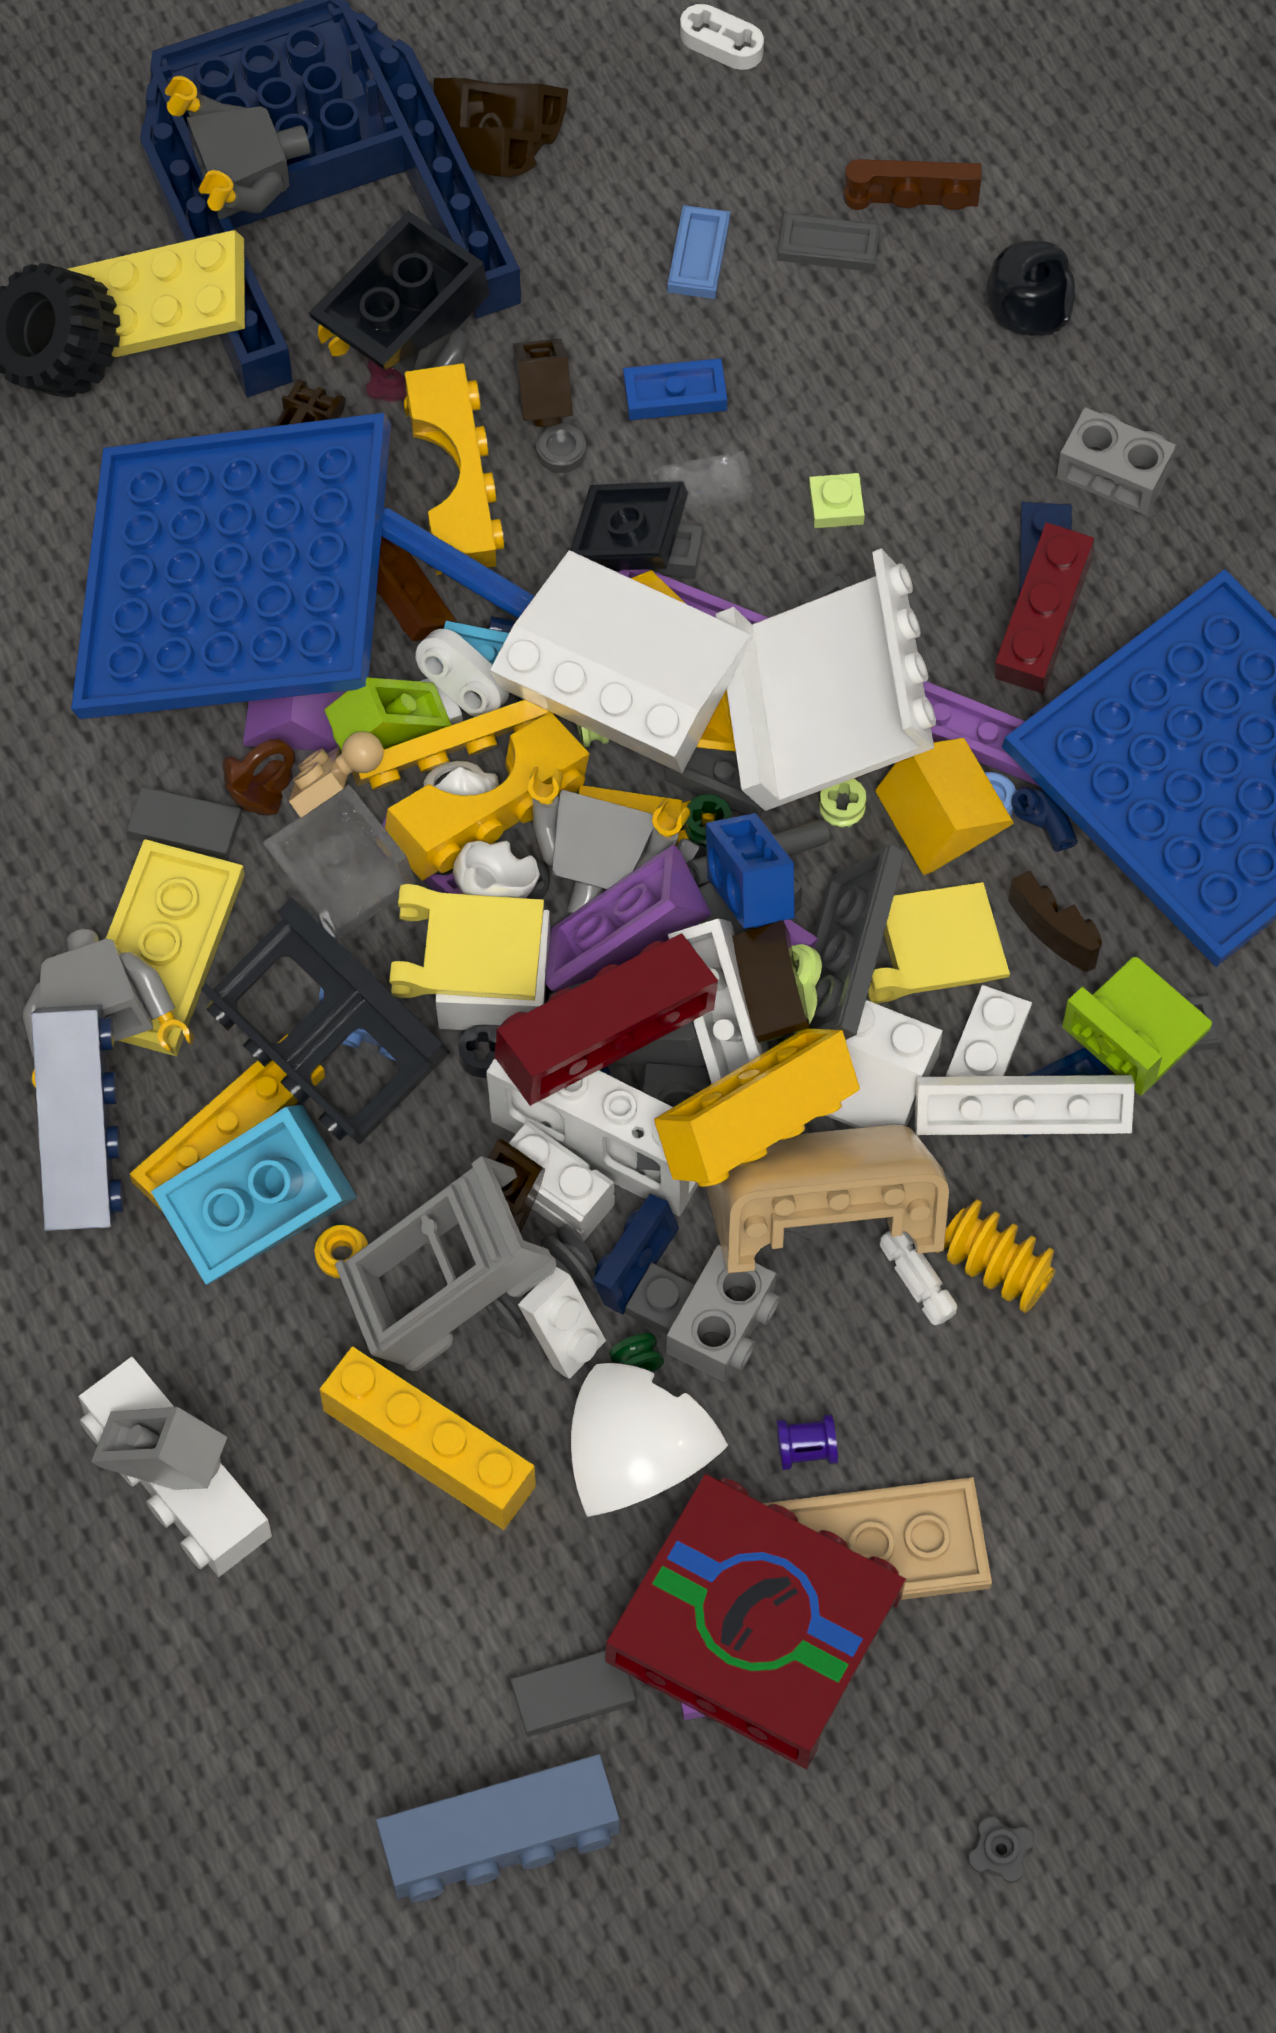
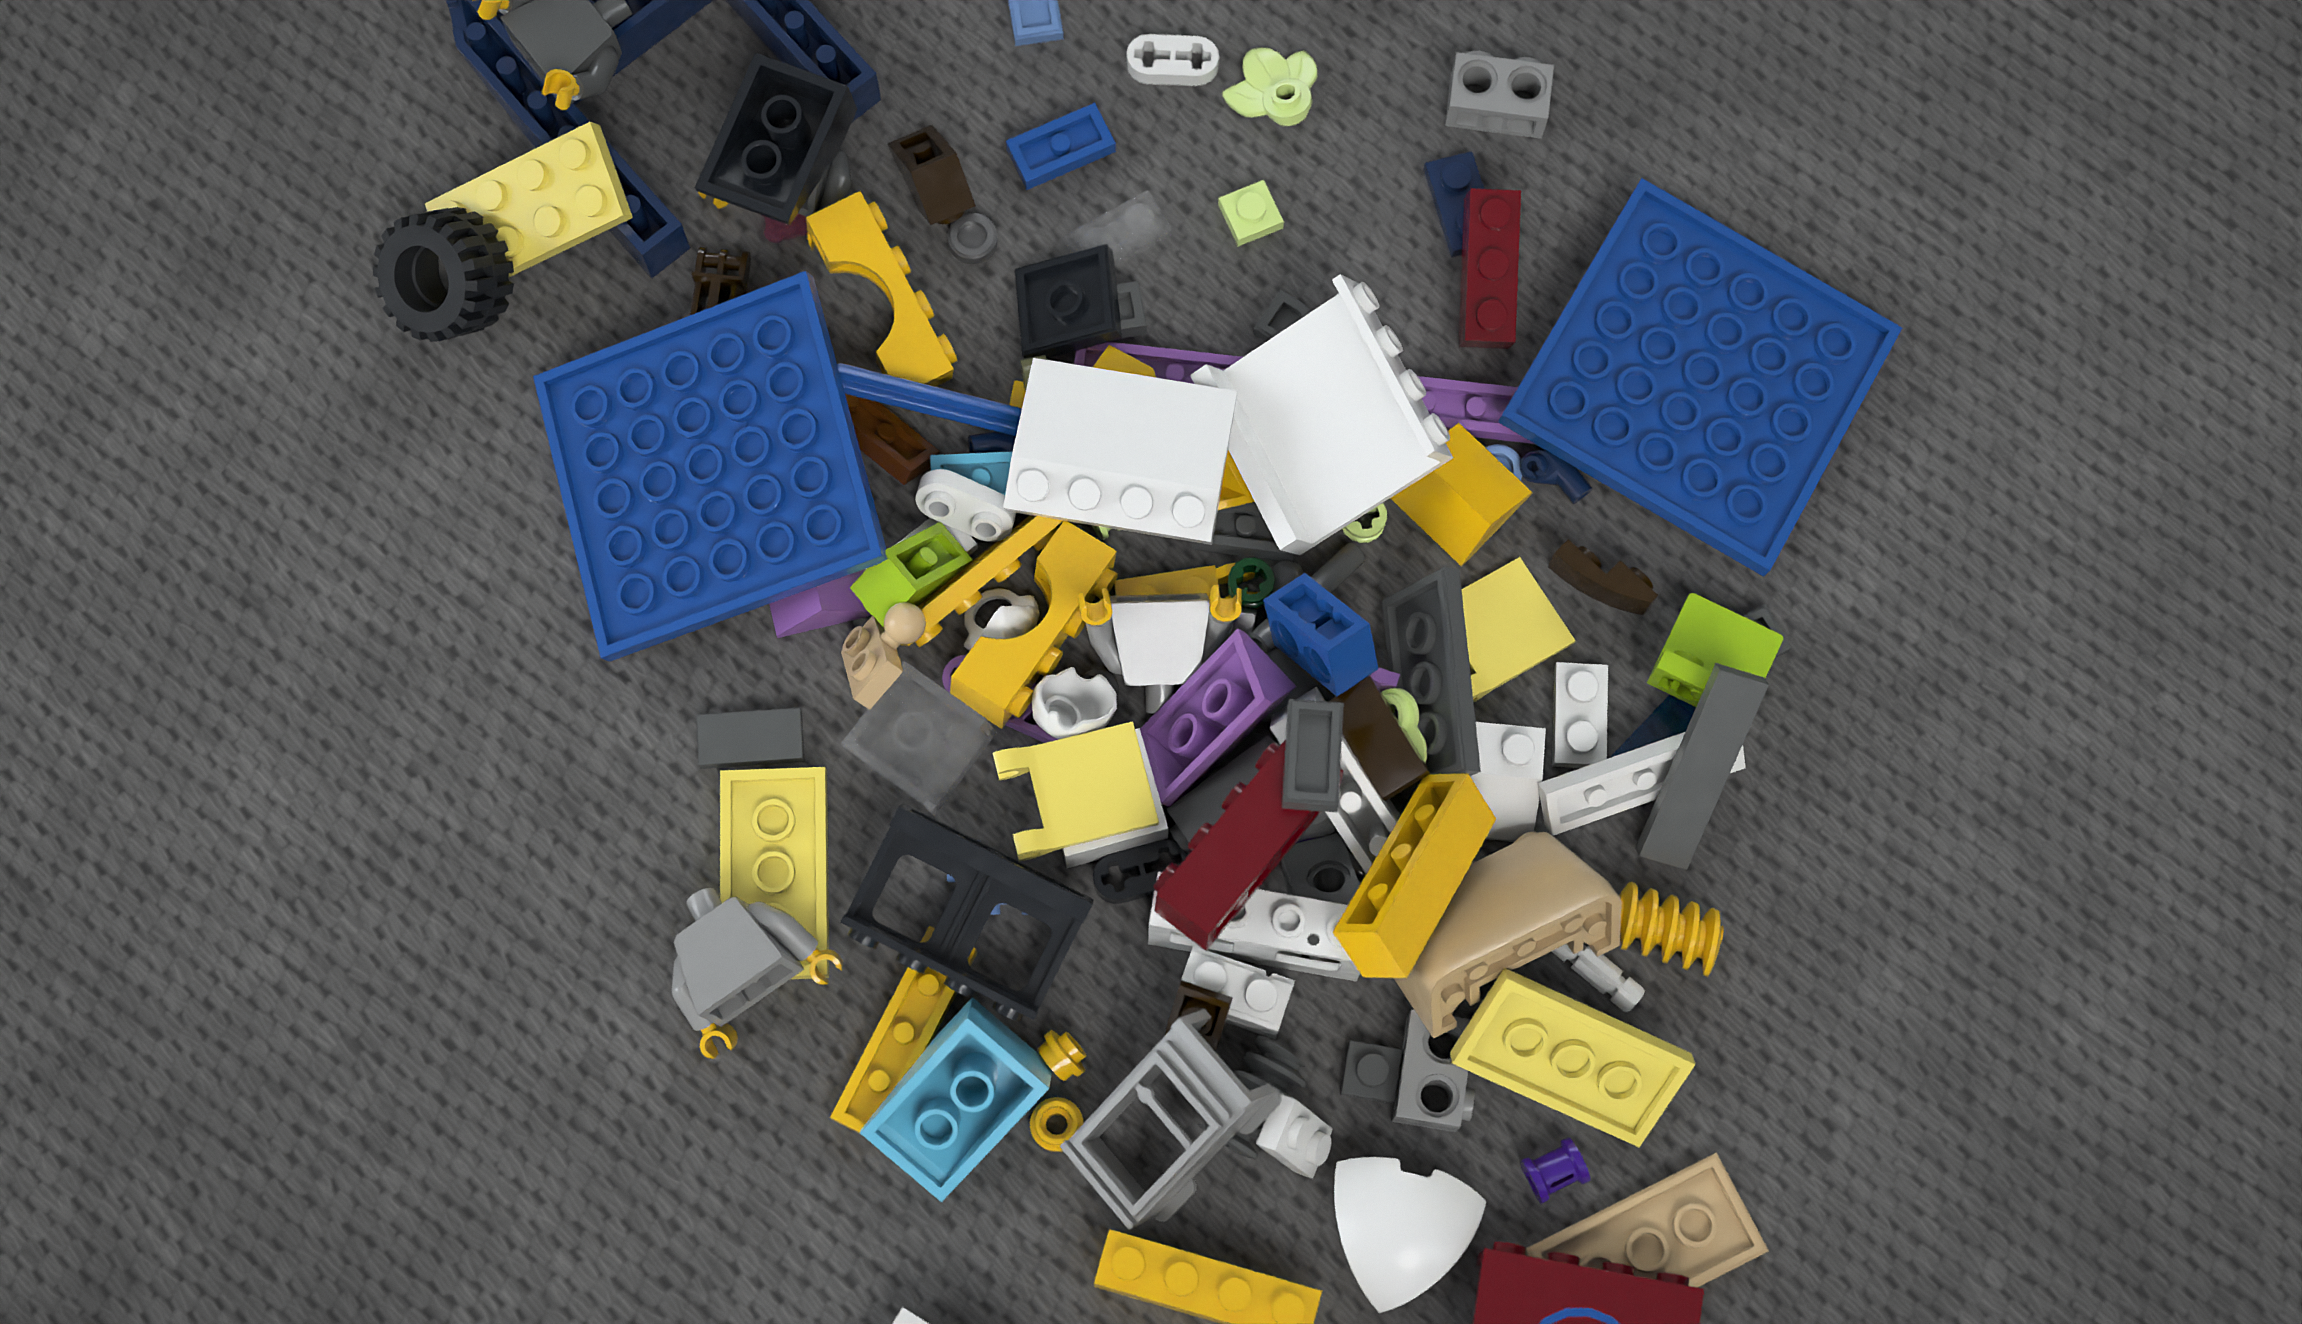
camera: 20 degrees left, 10 degrees up
(74, 1117) = (762, 1087): brick -> none
(263, 791) = (809, 678): reddish brown piece -> none
(370, 1189) = (1062, 1054): none -> yellow plate
(638, 1352) = (1370, 1138): dark green bush -> none
(643, 1241) = (1336, 1018): dark blue plate -> none
(692, 956) = (1312, 755): none -> dark grey tile
(812, 344) = (1172, 59): none -> white beam
(856, 1332) = (1572, 1057): none -> light yellow plate
(901, 395) = (1269, 81): none -> yellowish green plate
(1081, 1108) = (1701, 766): none -> dark grey tile

